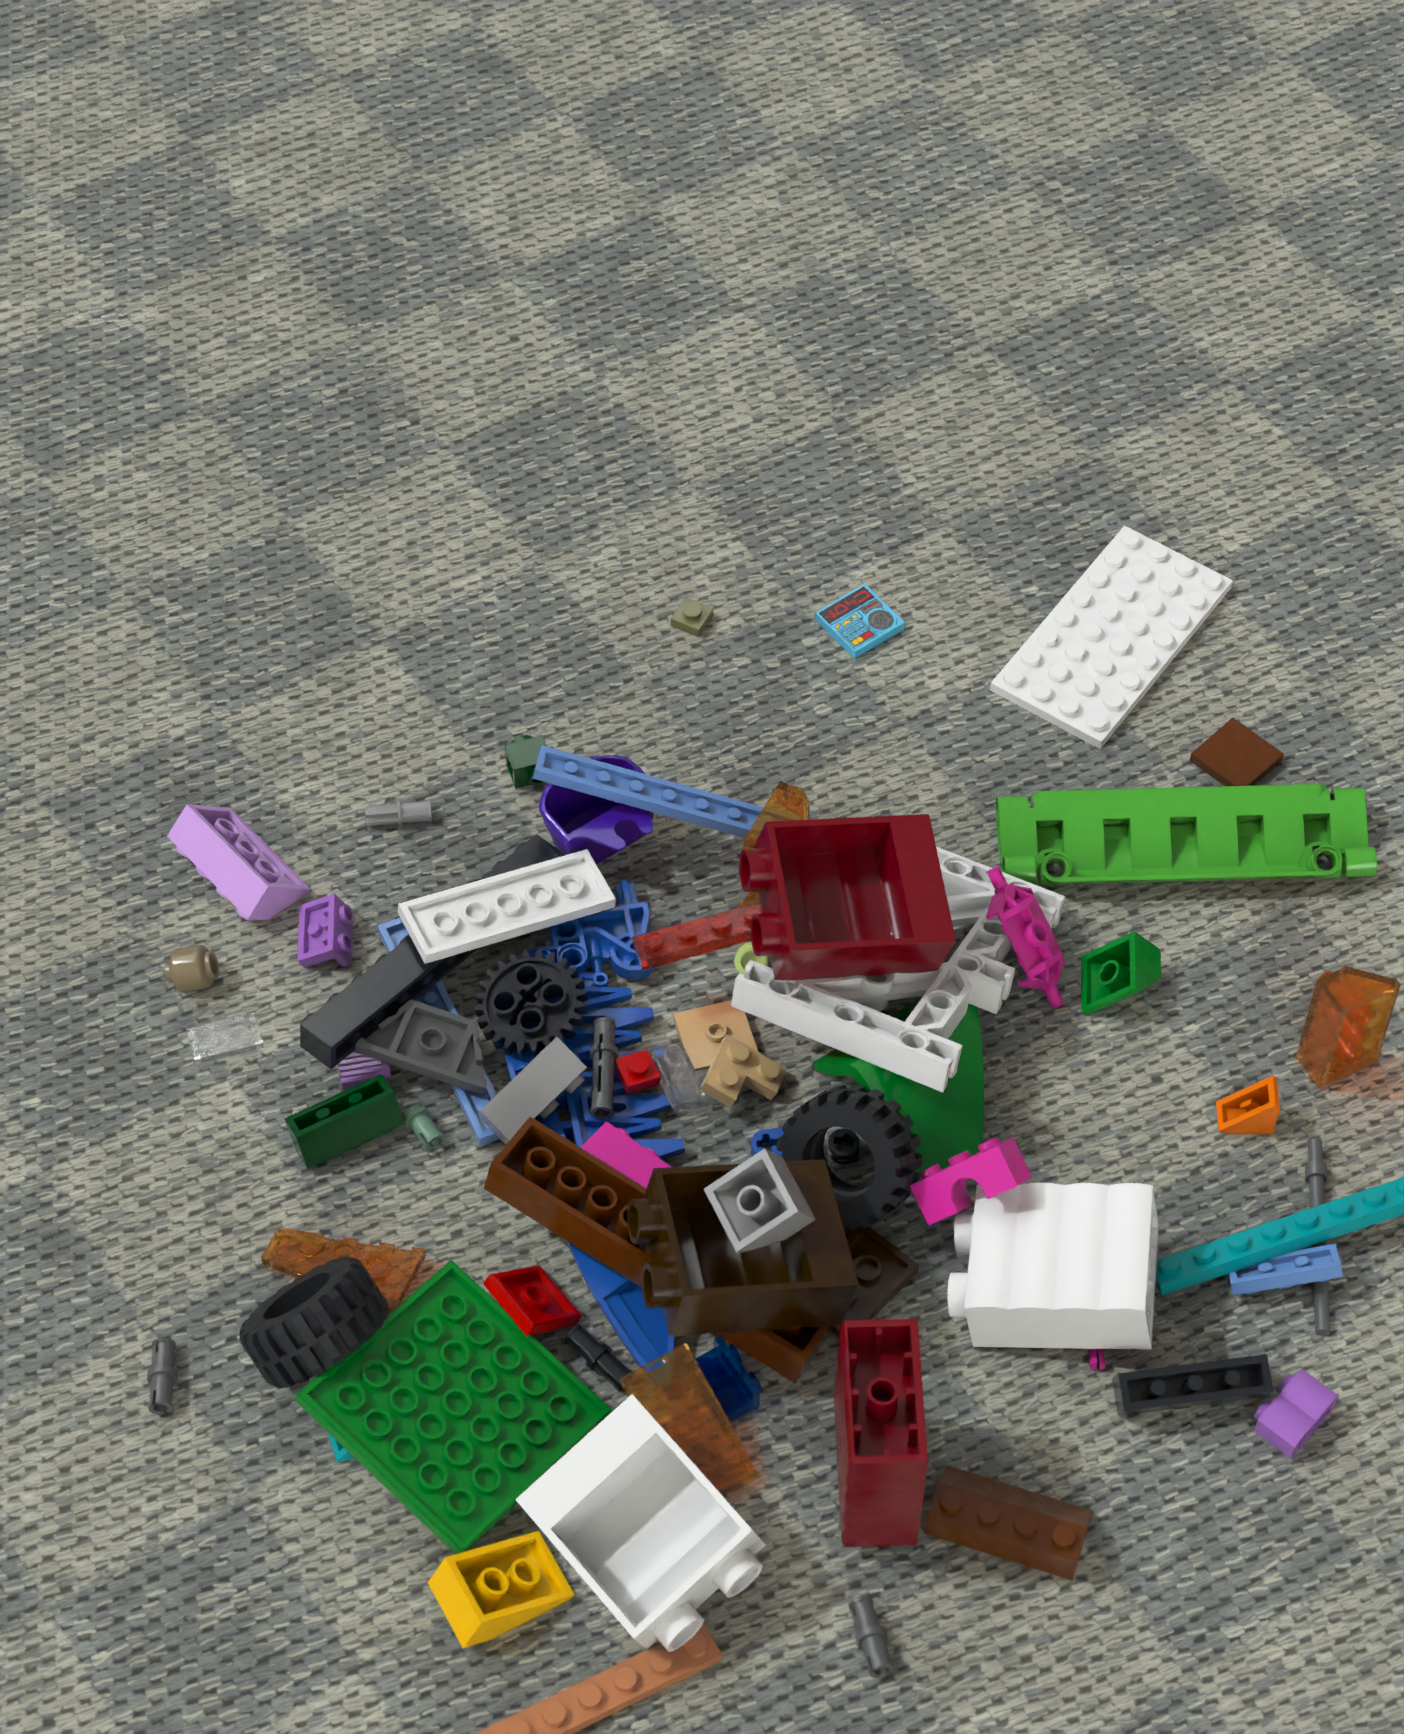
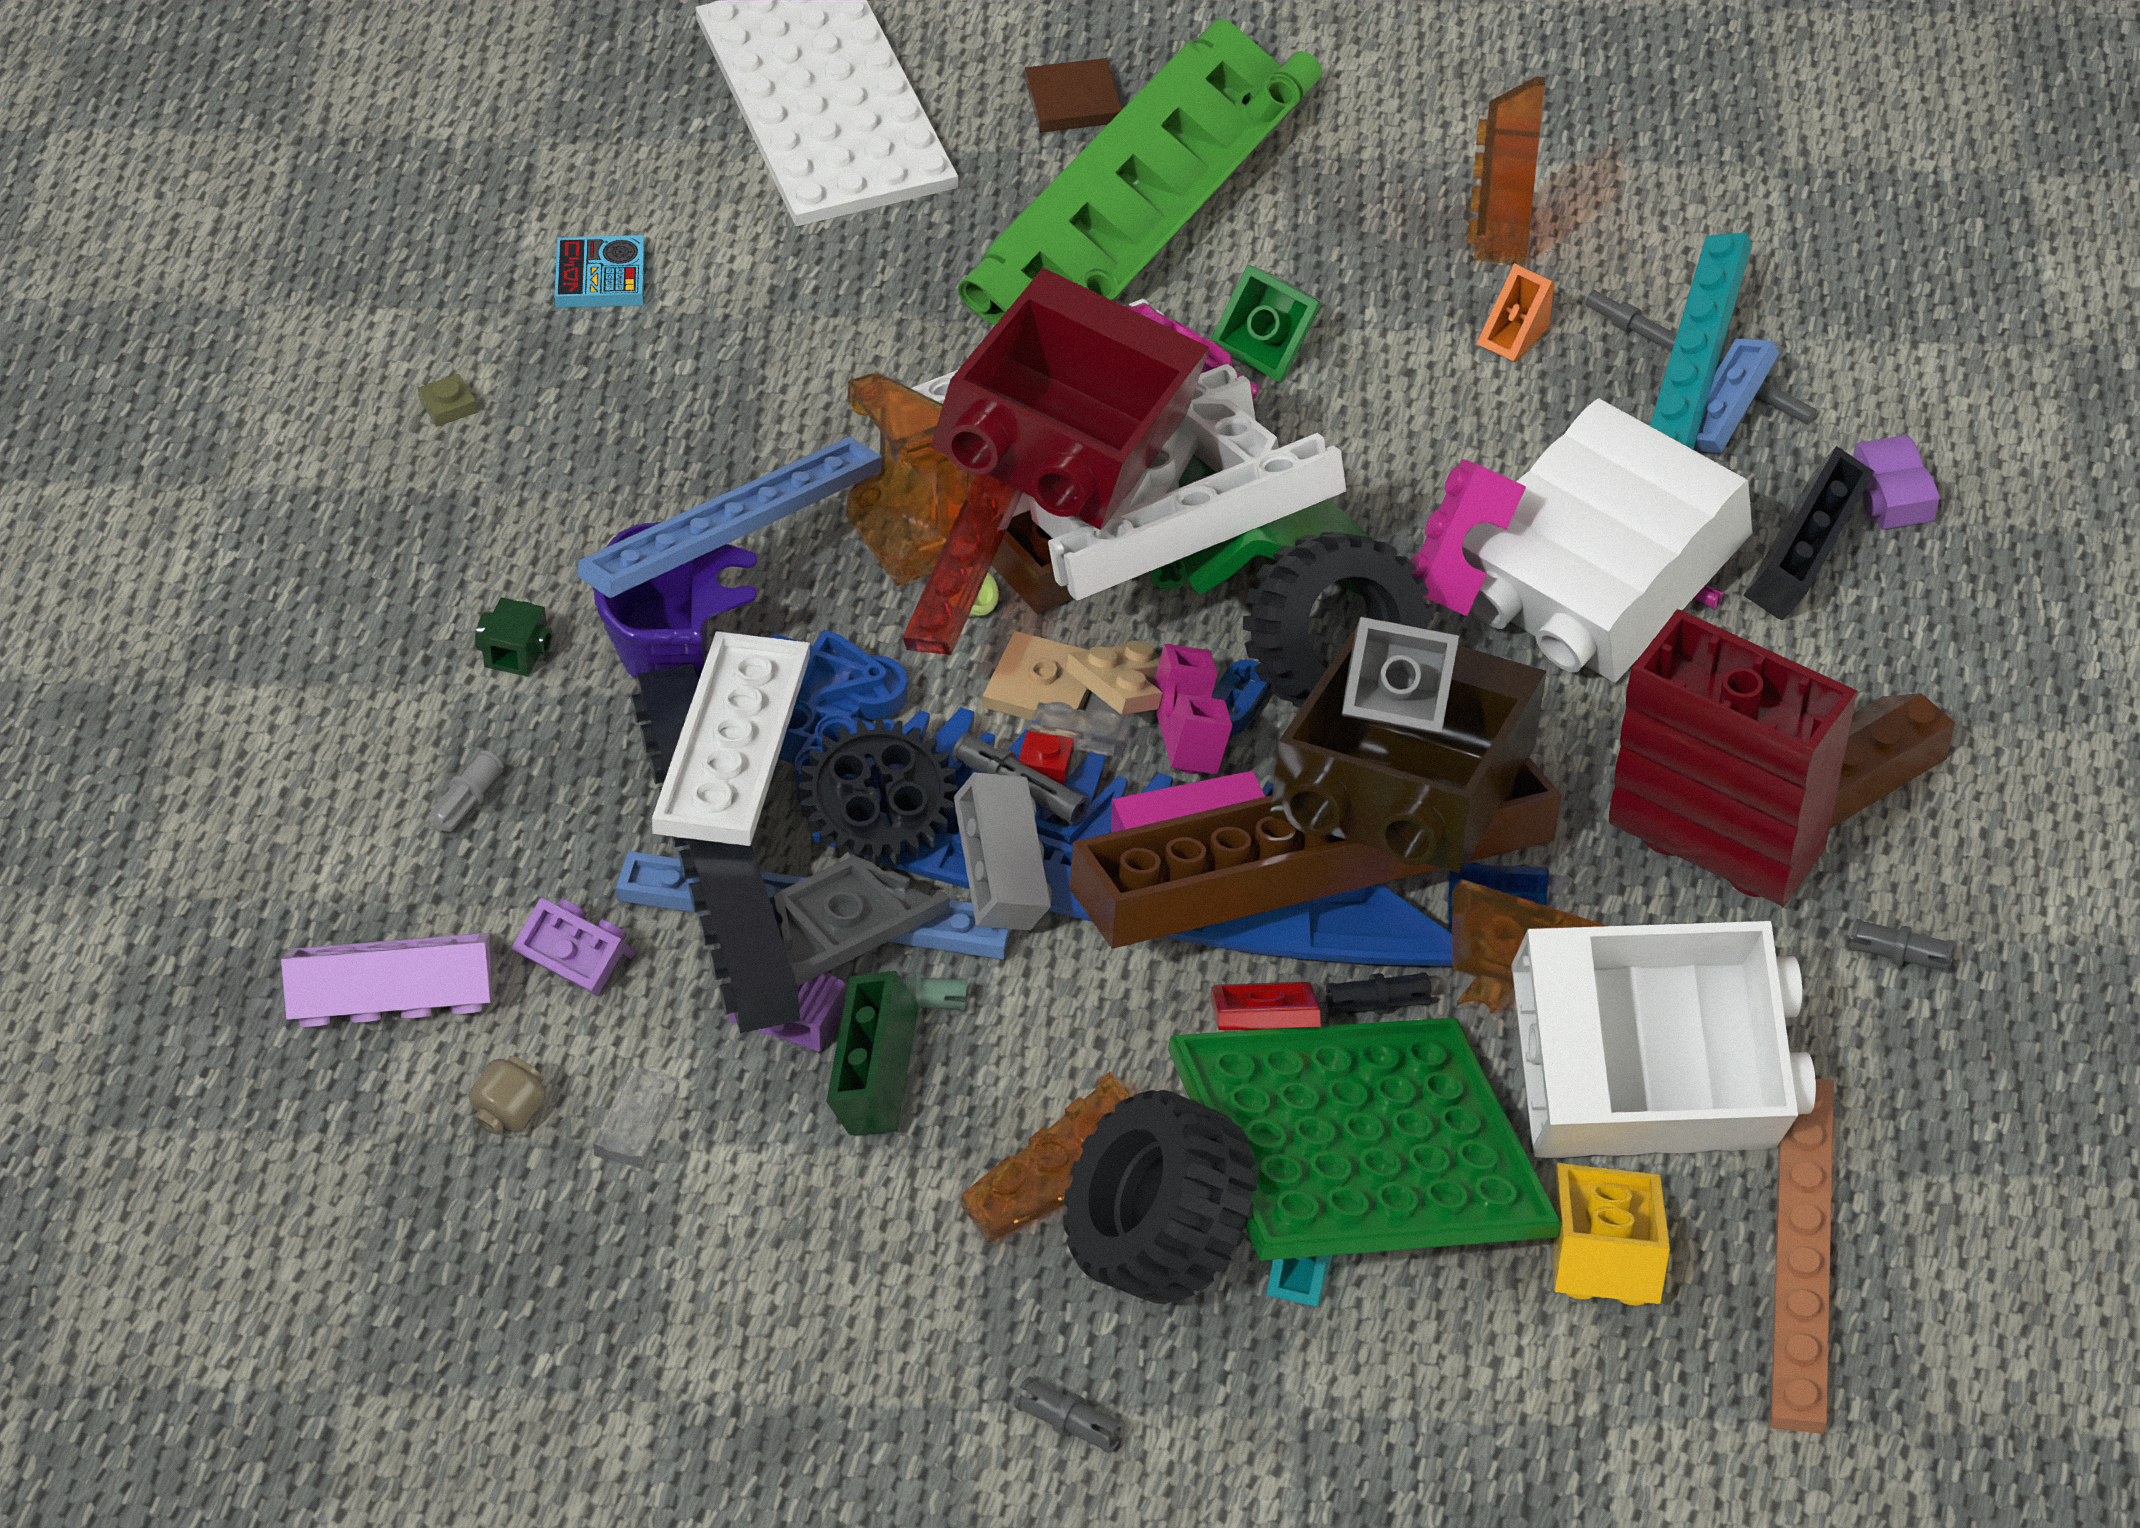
camera: 55 degrees left, 5 degrees down
(727, 1128) = (1190, 720): none -> dark pink arch

